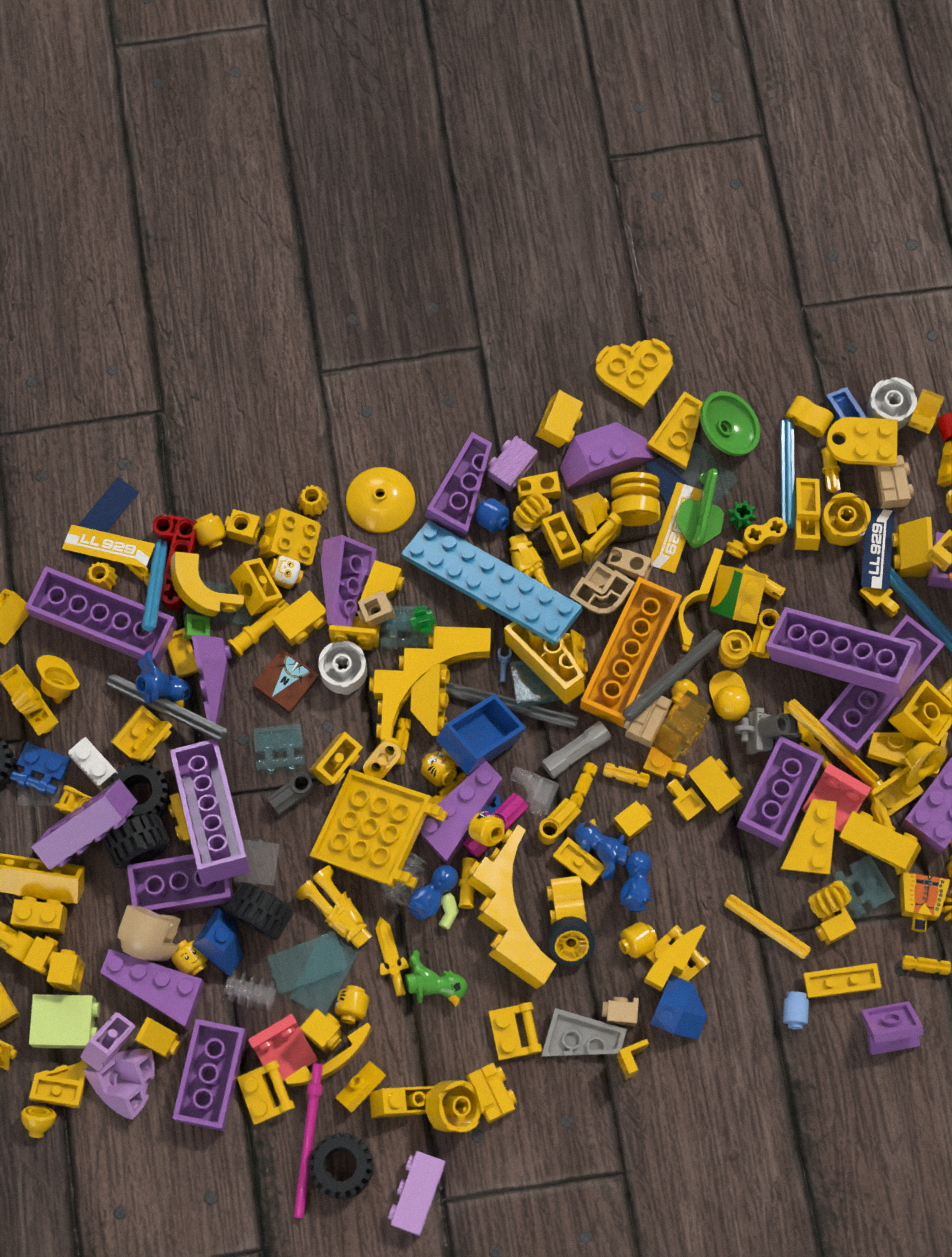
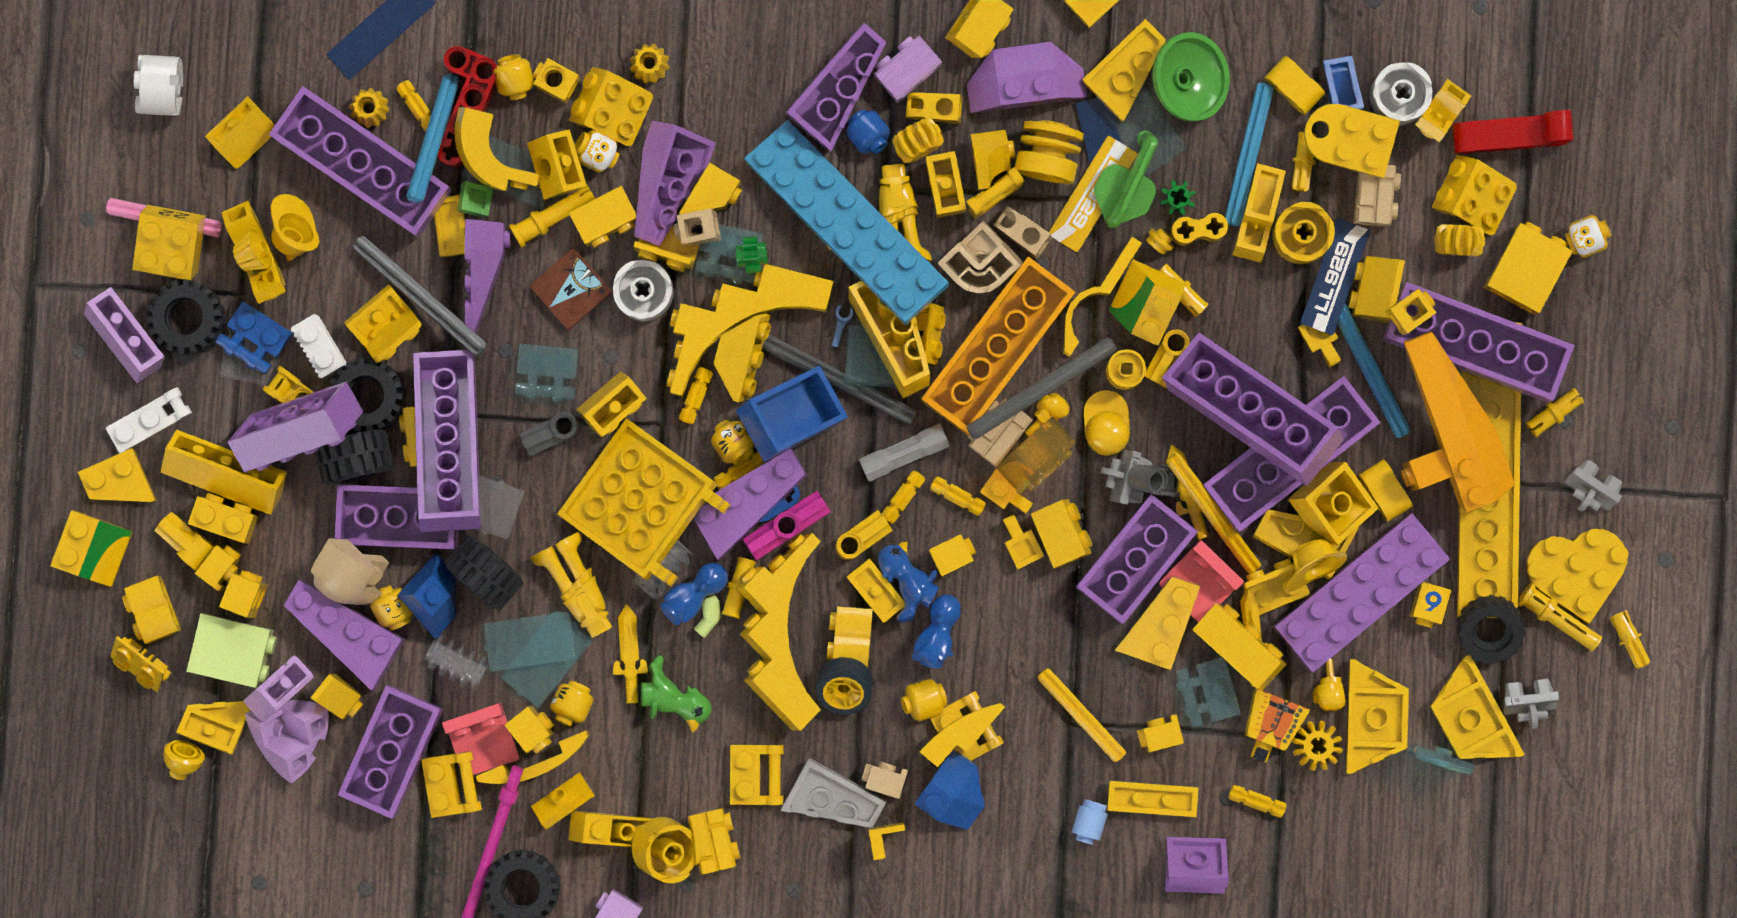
camera: 10 degrees right, 15 degrees up
(108, 546) = (384, 69): yellow sticker -> none
(155, 683) = (410, 266): blue animal -> none
(383, 757) = (670, 415): yellow plate -> none
(385, 512) = (738, 99): yellow dish -> none
(486, 828) = (772, 534): yellow head -> none
(538, 790) = (847, 495): clear arch -> none
(829, 899) = (1161, 701): yellow gear -> none

